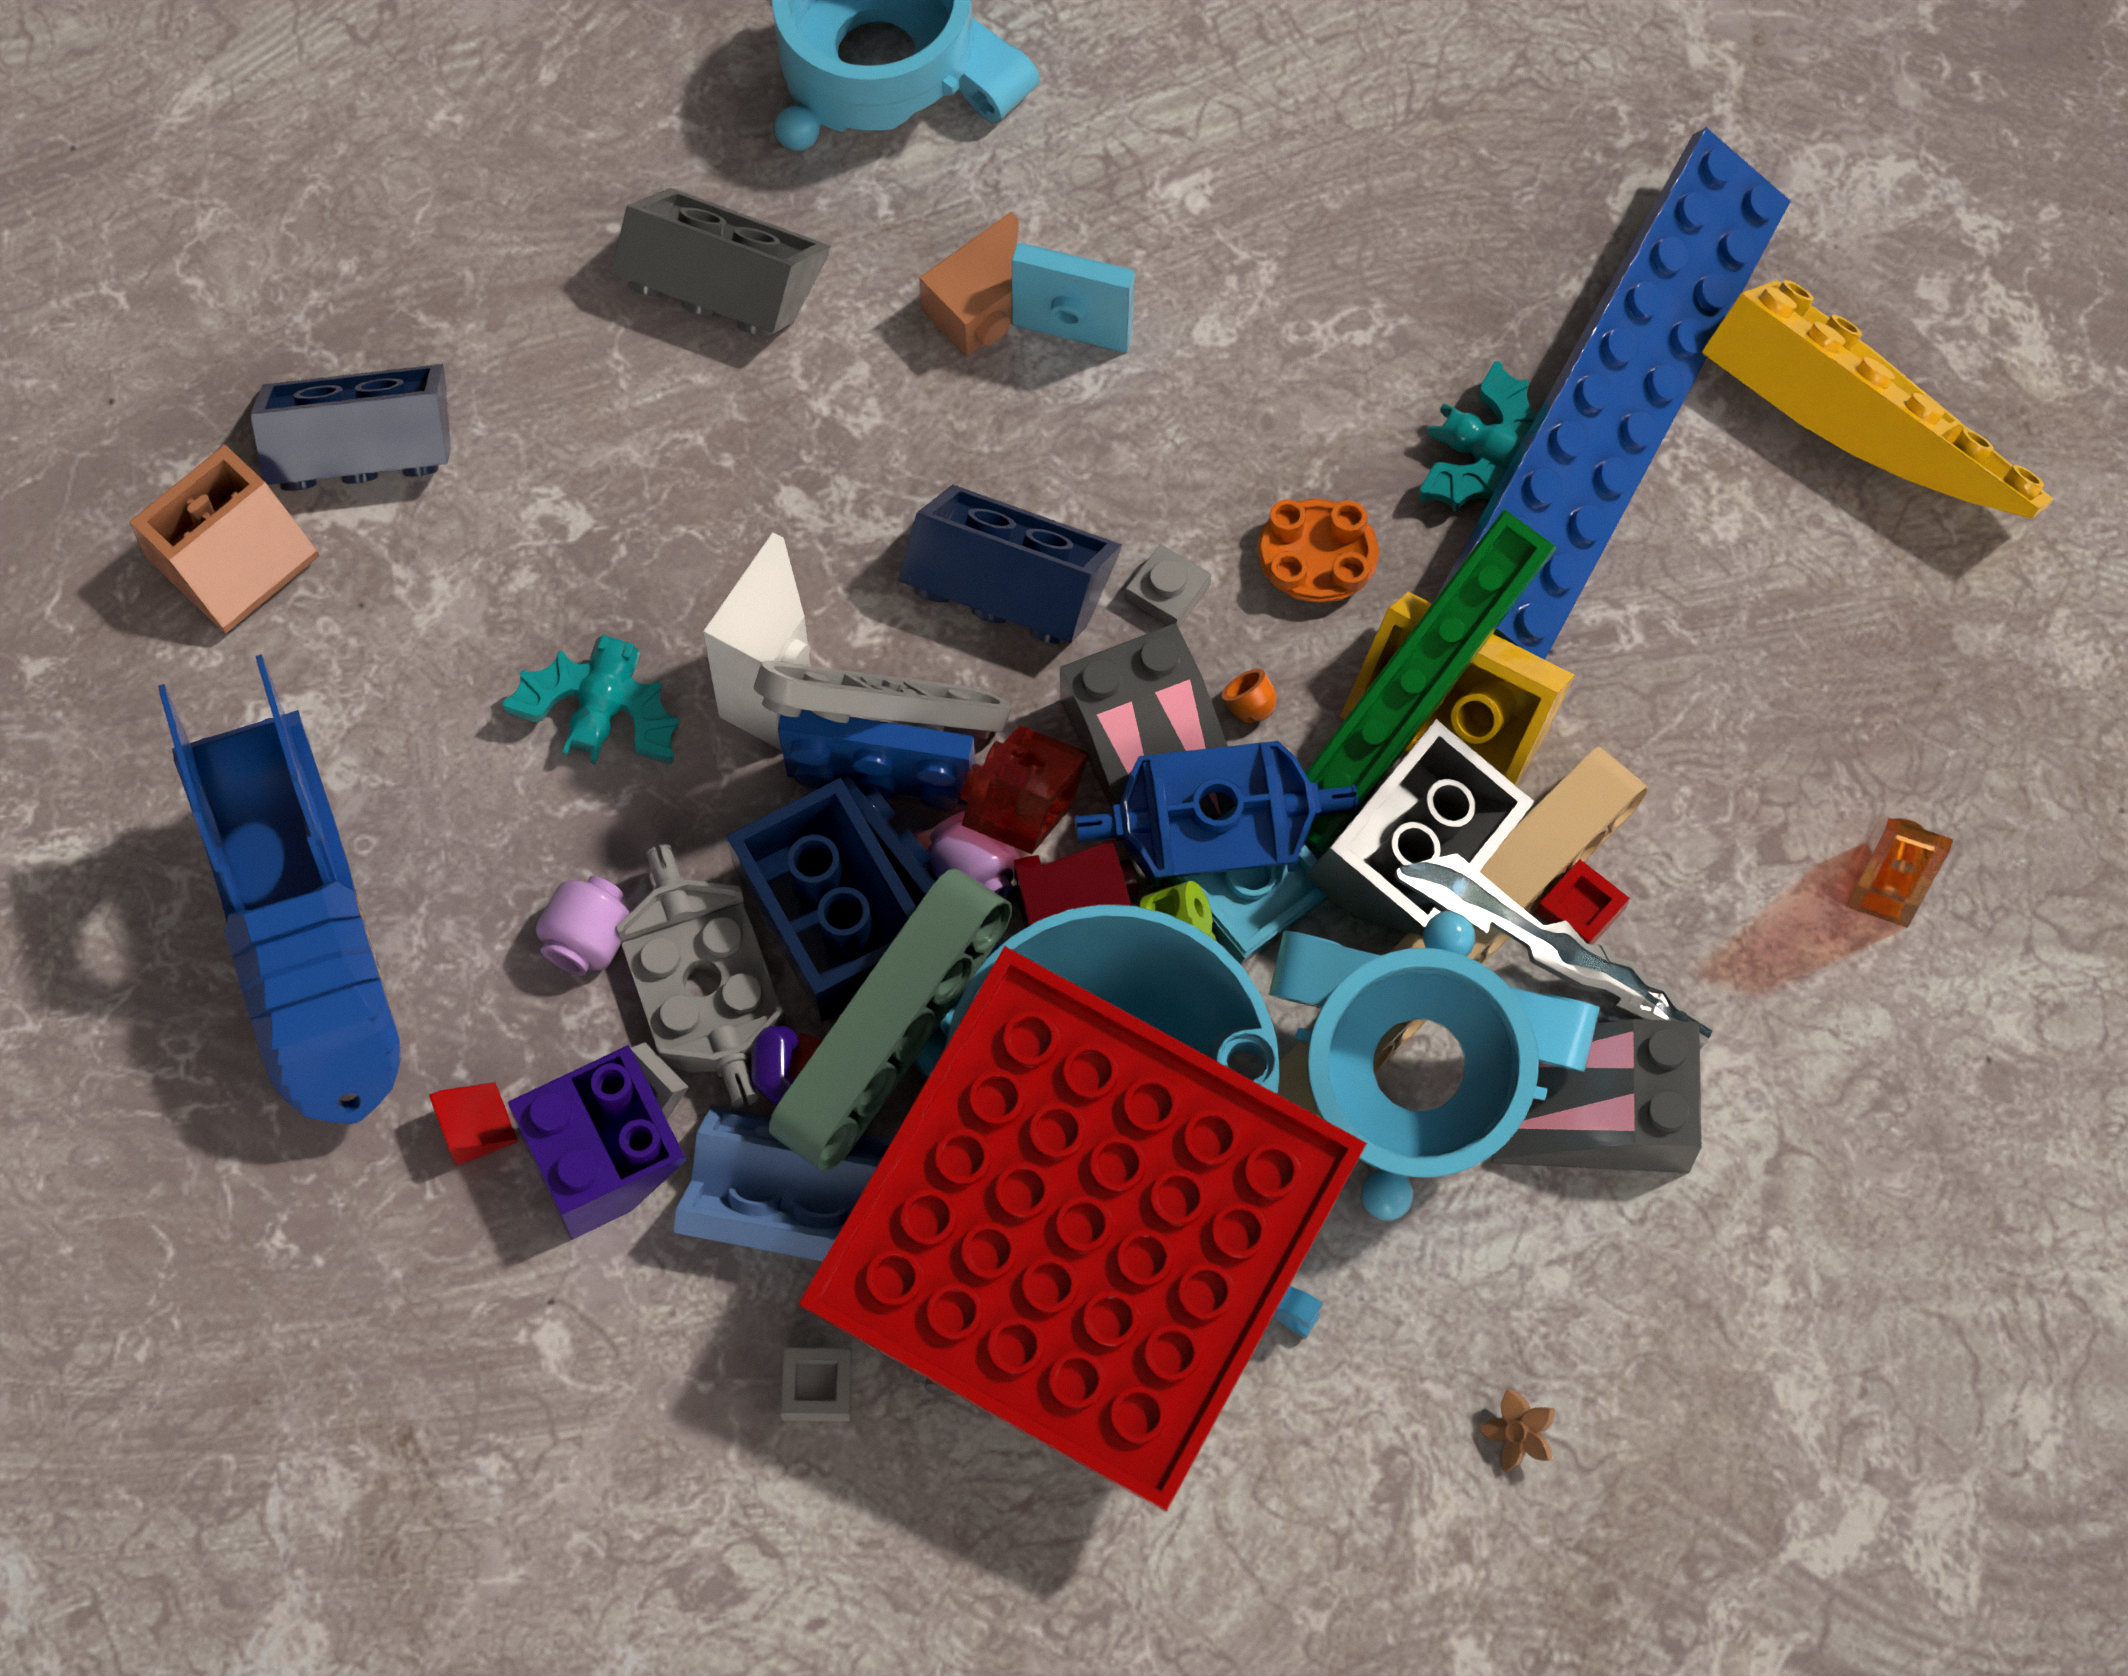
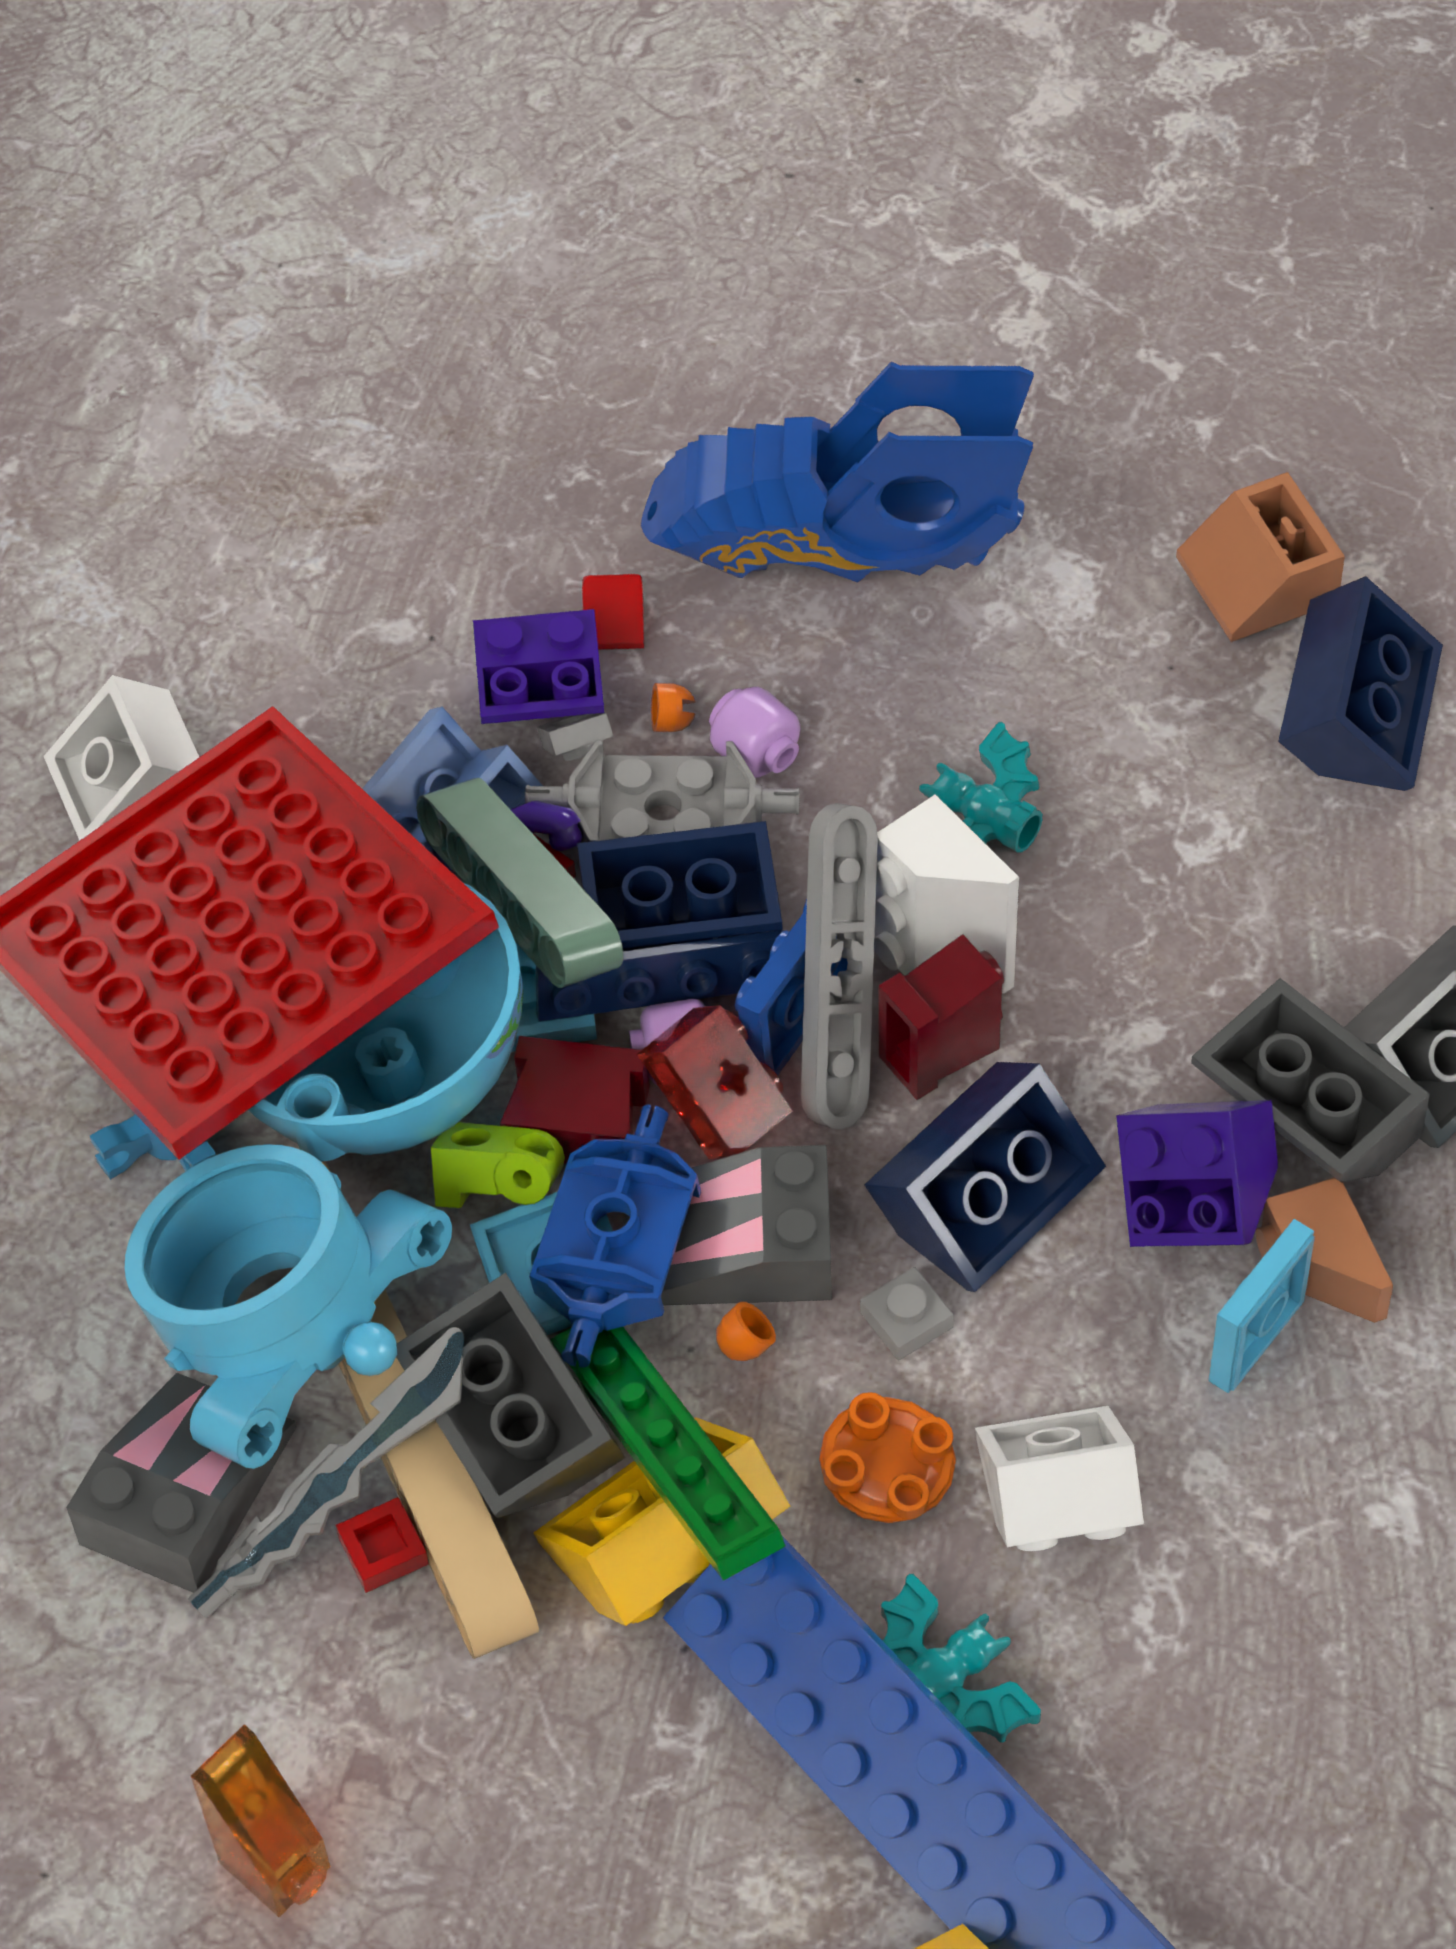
camera: 115 degrees right, 10 degrees down
(577, 1020) = (667, 707): none -> orange hinge
(833, 324) = (1324, 1083): none -> dark grey slope
(845, 1519) = (118, 751): none -> white slope
(876, 623) = (940, 1016): none -> dark red hips
(955, 383) = (1197, 1171): none -> dark purple slope
(1277, 414) = (1060, 1478): none -> white slope

